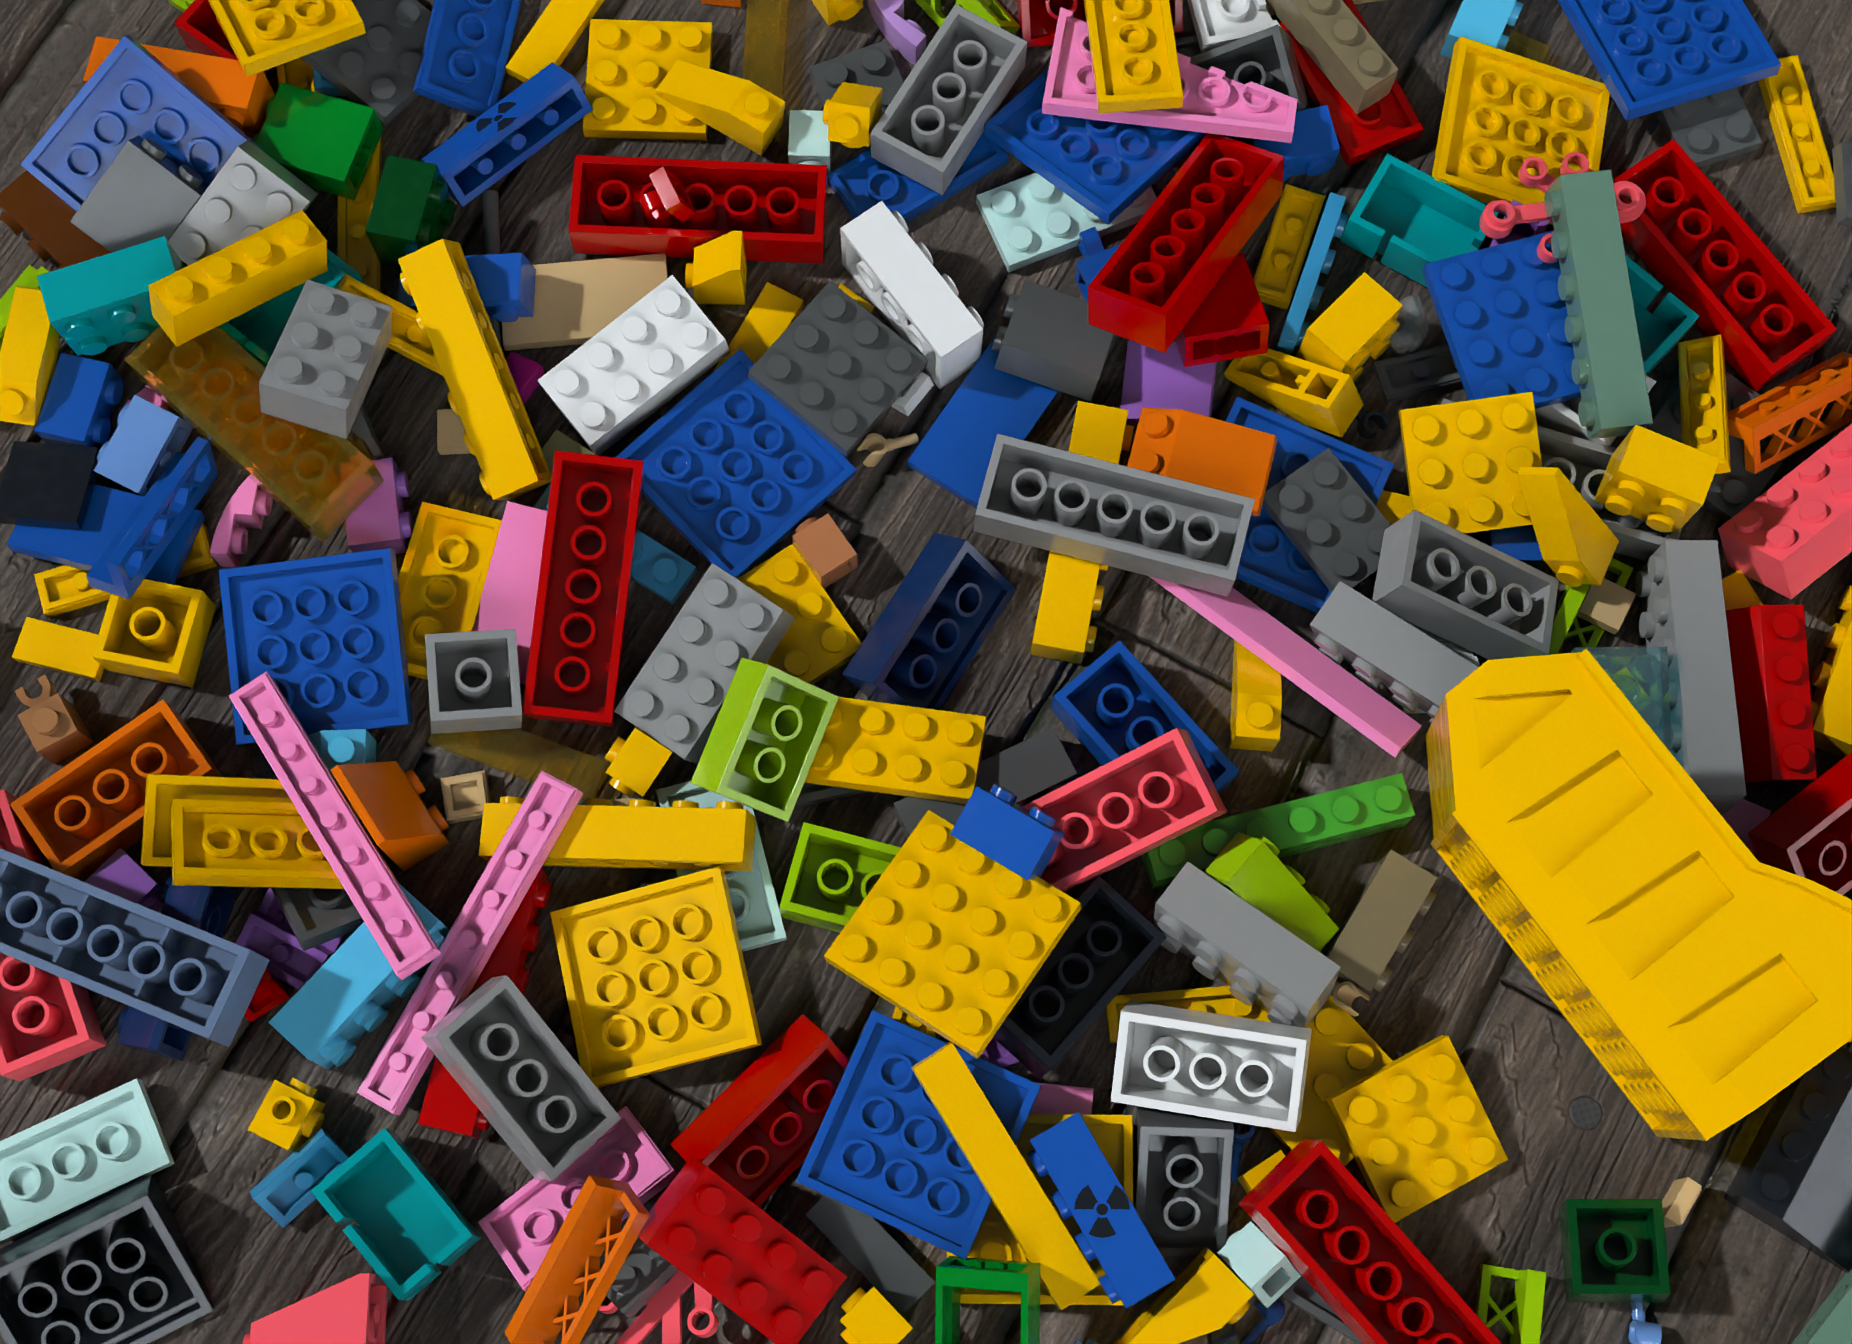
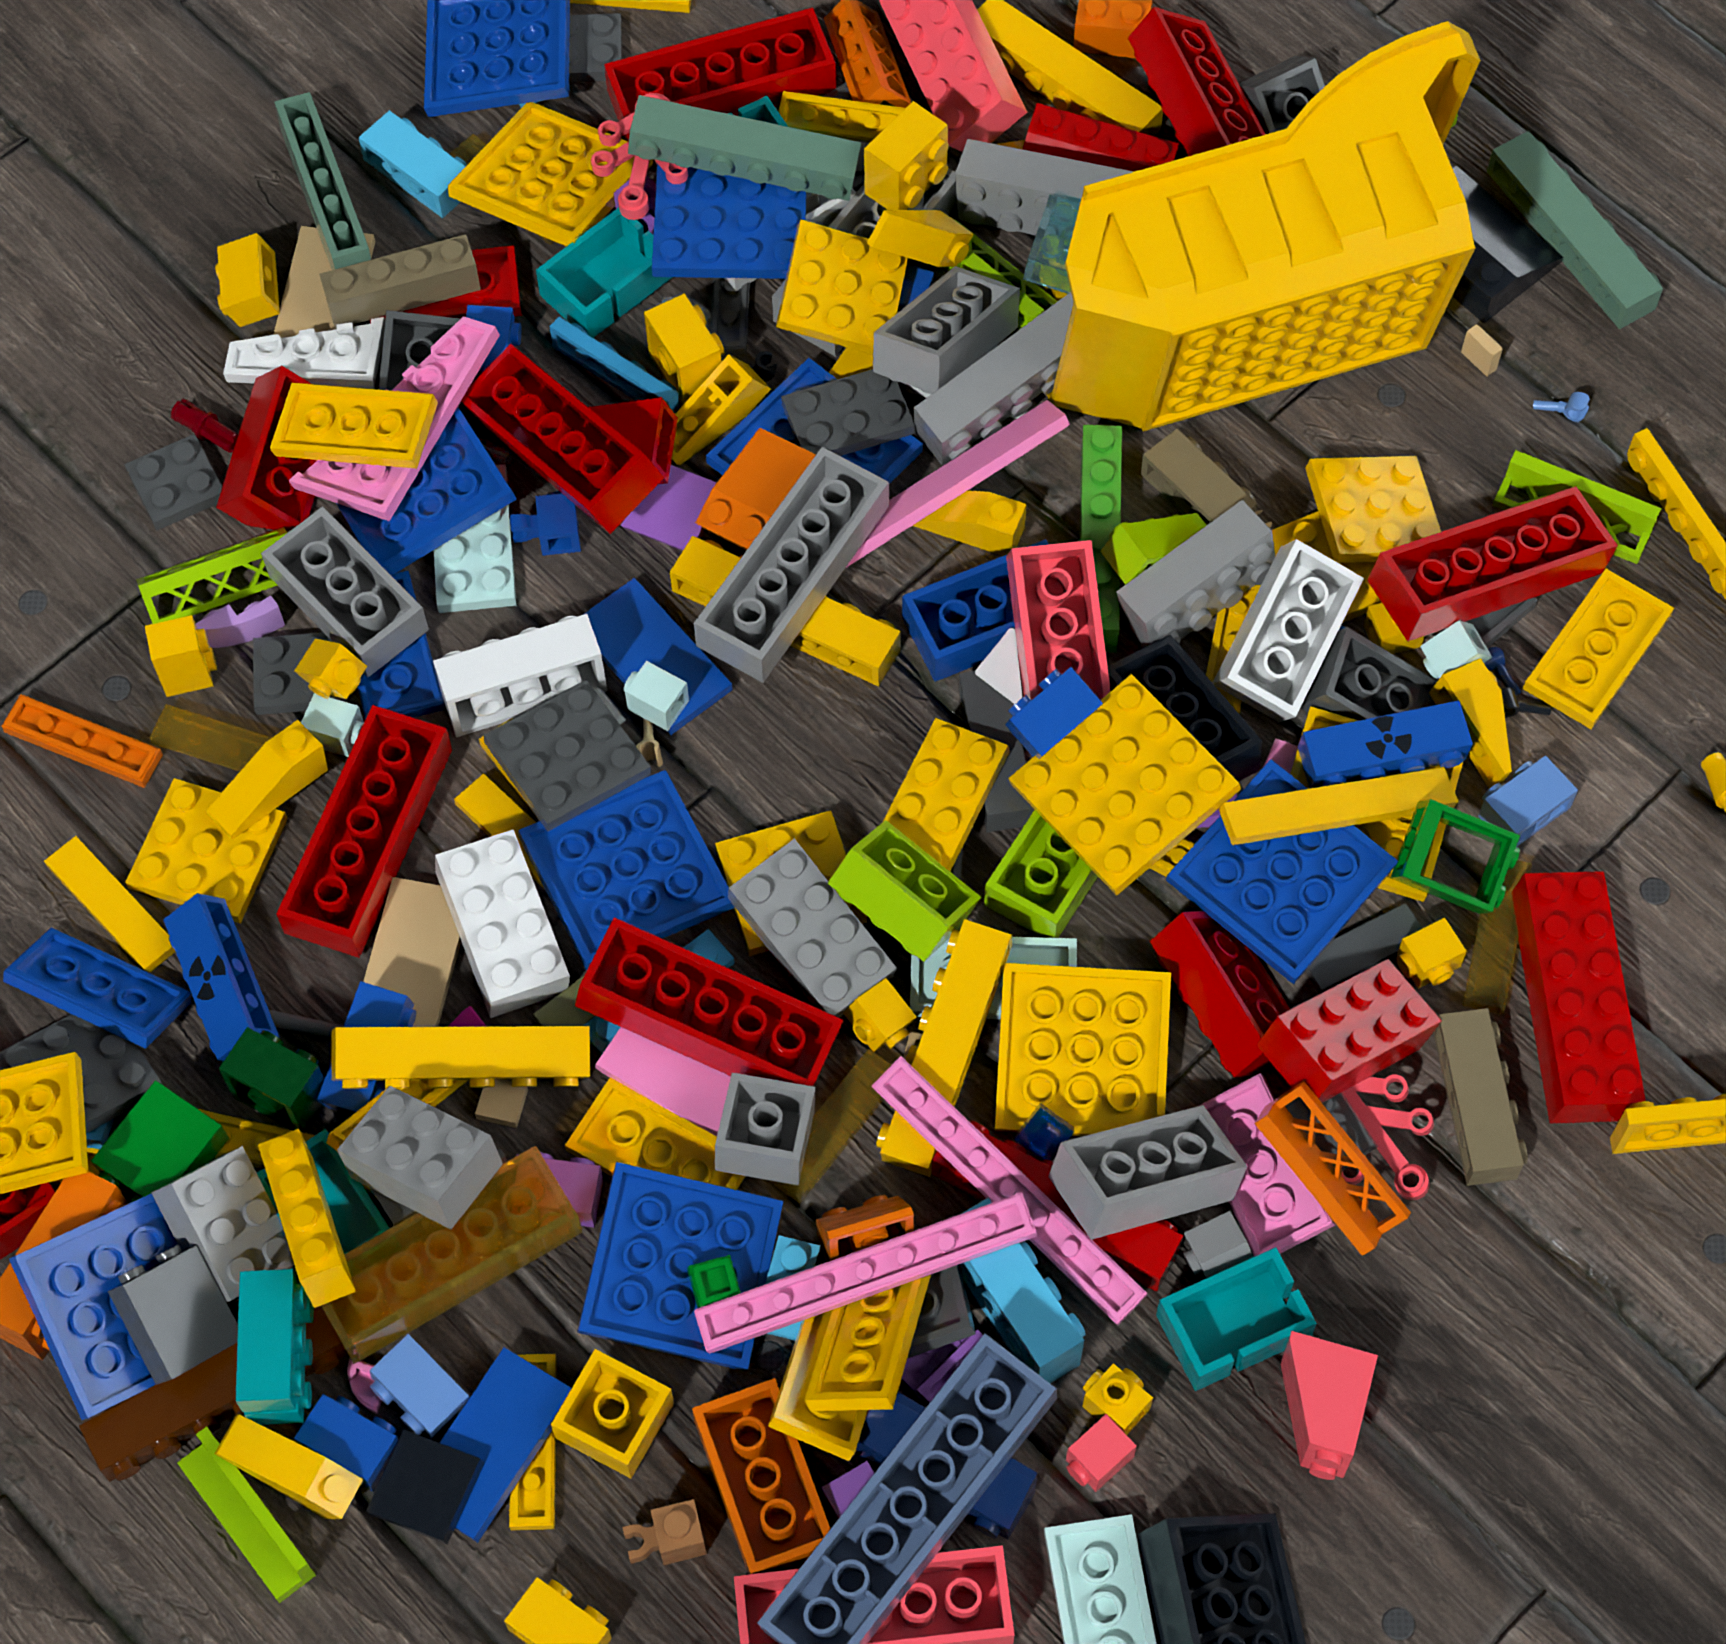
camera: 70 degrees left, 10 degrees down
(58, 649) = (594, 1517): yellow tile -> none
(155, 521) = (506, 1382): blue fence -> none
(224, 1112) = (1099, 1454): none -> coral brick
(243, 511) = (517, 1307): bright pink slope -> none
(289, 1185) = (1177, 1401): dark azure plate -> none
(302, 682) = (713, 1280): none -> green tile
(465, 796) = (860, 1179): tan tile -> none
(470, 1177) = (1216, 1246): none -> light grey brick
(552, 962) = (1044, 1132): none -> clear blue tile
(668, 197) = (358, 835): red tile -> none
(719, 271) = (433, 824): yellow slope -> none
(824, 549) = (730, 814): nougat brick -> none
(931, 432) = (656, 695): none -> light aqua brick
(931, 626) = (830, 751): dark blue slope -> none
(1051, 341) = (605, 575): dark grey brick -> none
(1065, 766) = (1002, 669): none -> white sticker
(1287, 245) = (577, 377): yellow tile -> none
(1606, 605) = (987, 243): tan tile -> none
(1614, 1250) = (1509, 400): dark green brick -> none

